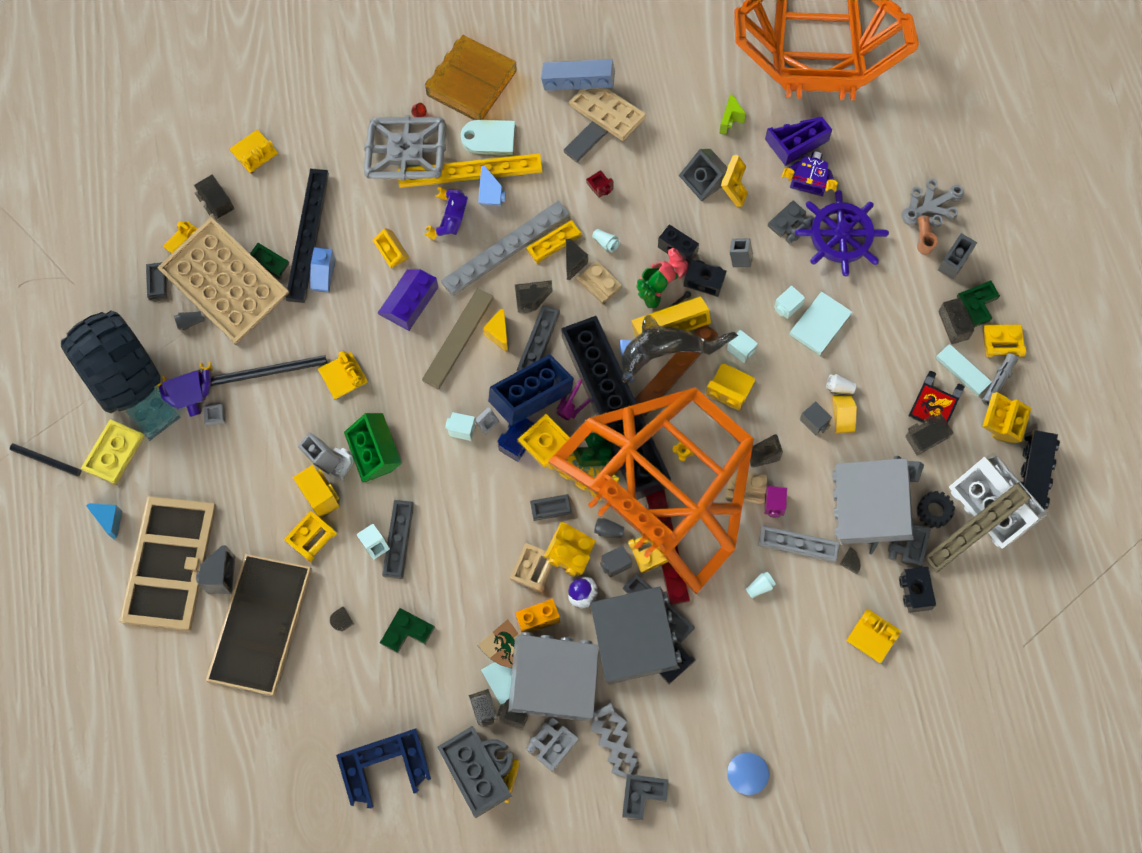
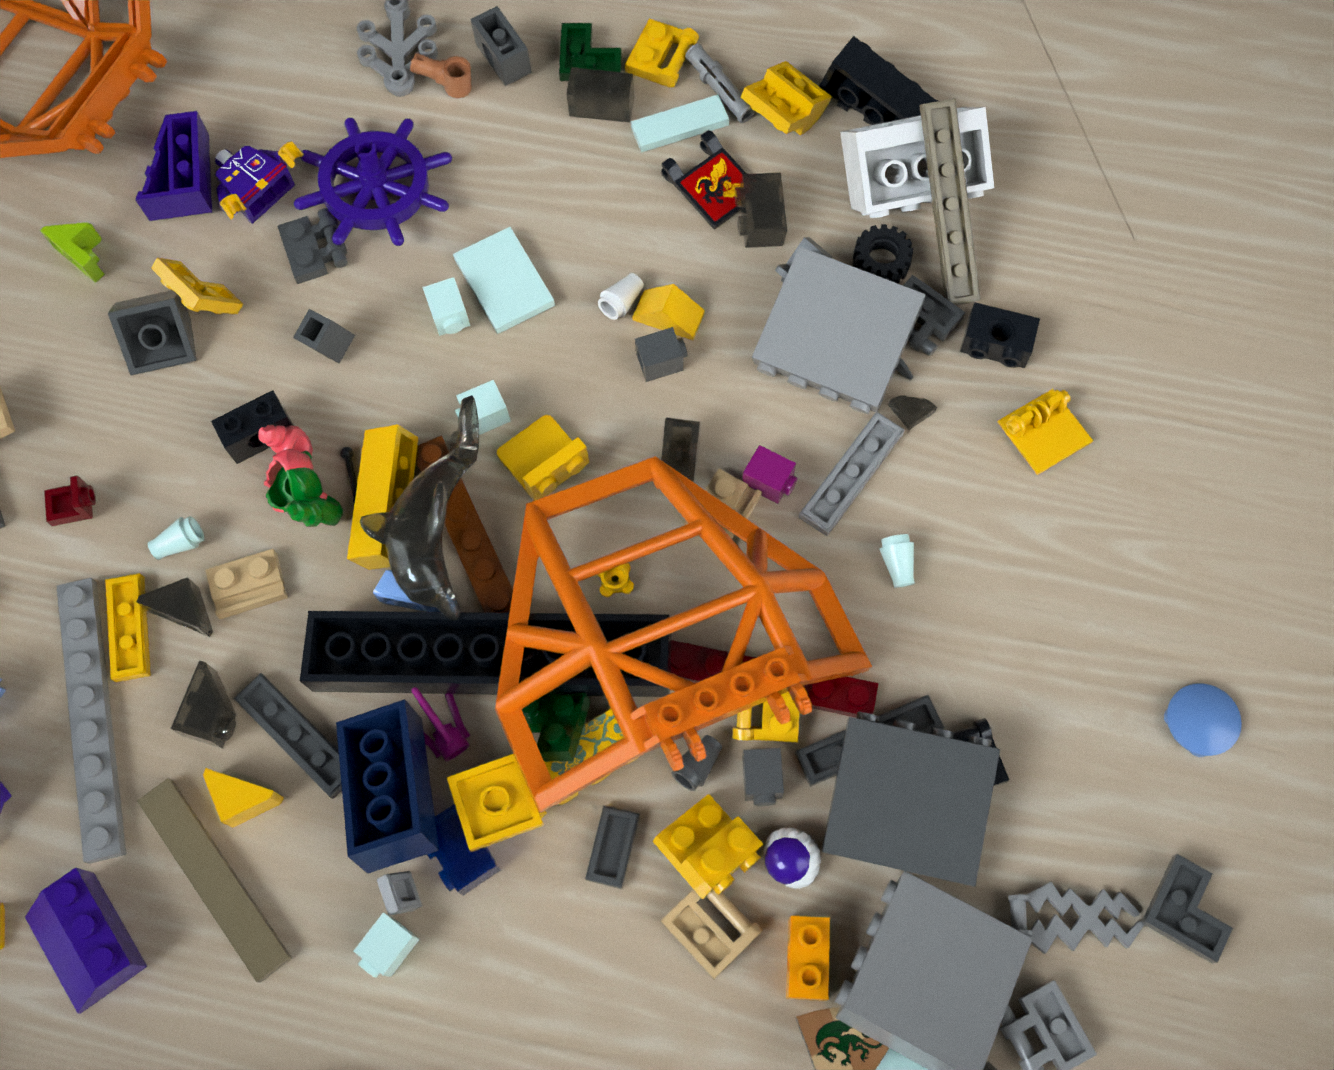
camera: 65 degrees left, 0 degrees up
(696, 282) = (331, 429): black brick -> none

